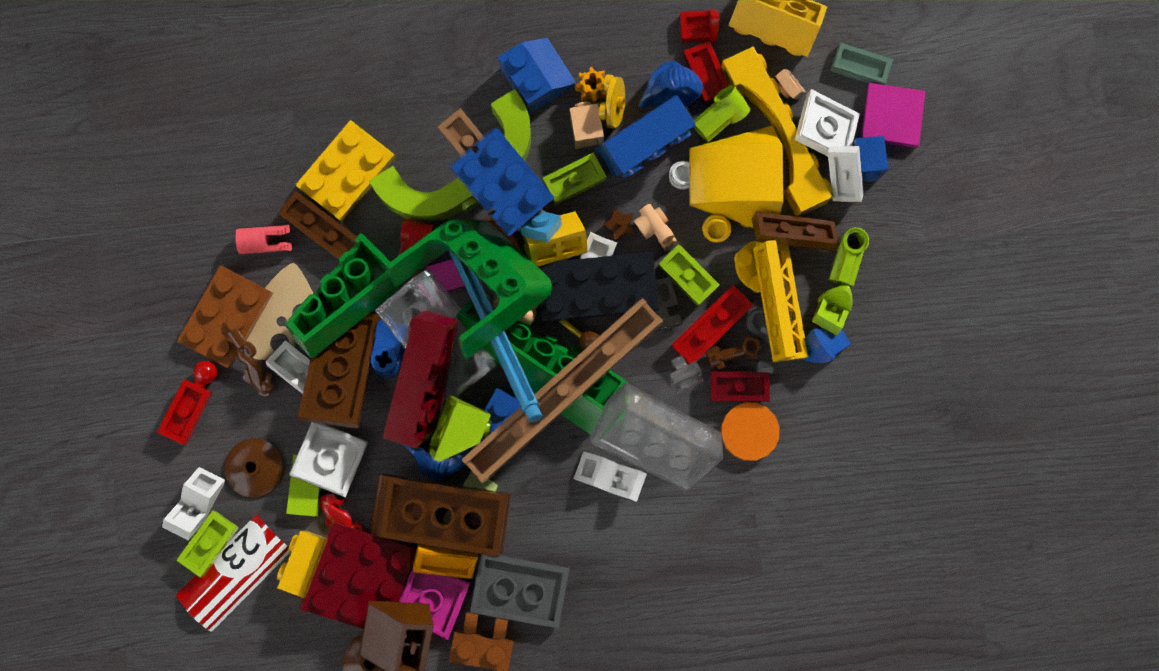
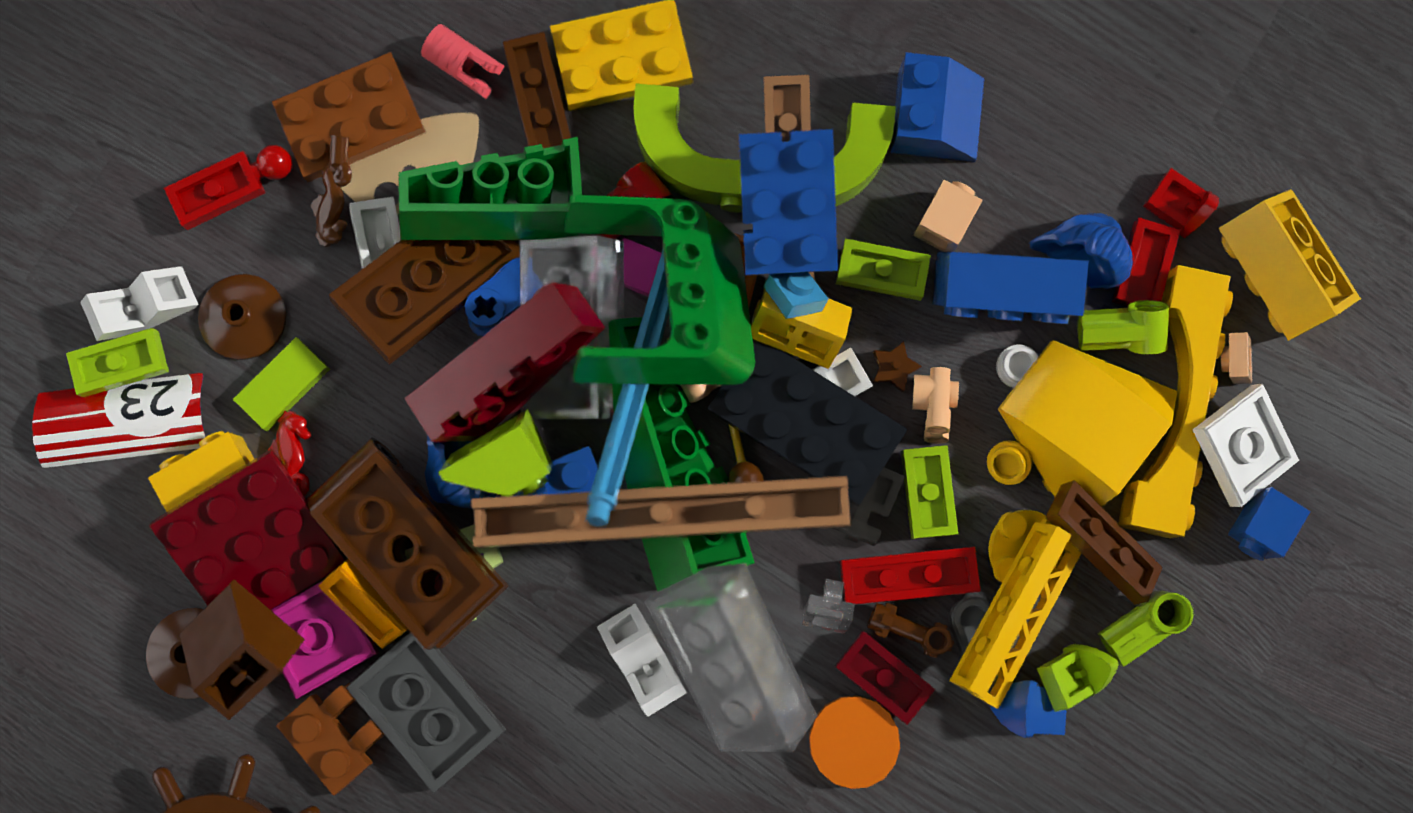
camera: 40 degrees right, 0 degrees up
(328, 458) = (330, 374): white tile -> none
(585, 88) = (999, 163): light orange gear -> none
(615, 101) = (1004, 215): yellow piece -> none
(845, 173) = (1224, 520): white plate -> none
(861, 64) = (1348, 403): sand green tile -> none
(893, 114) = (1343, 494): dark pink tile -> none

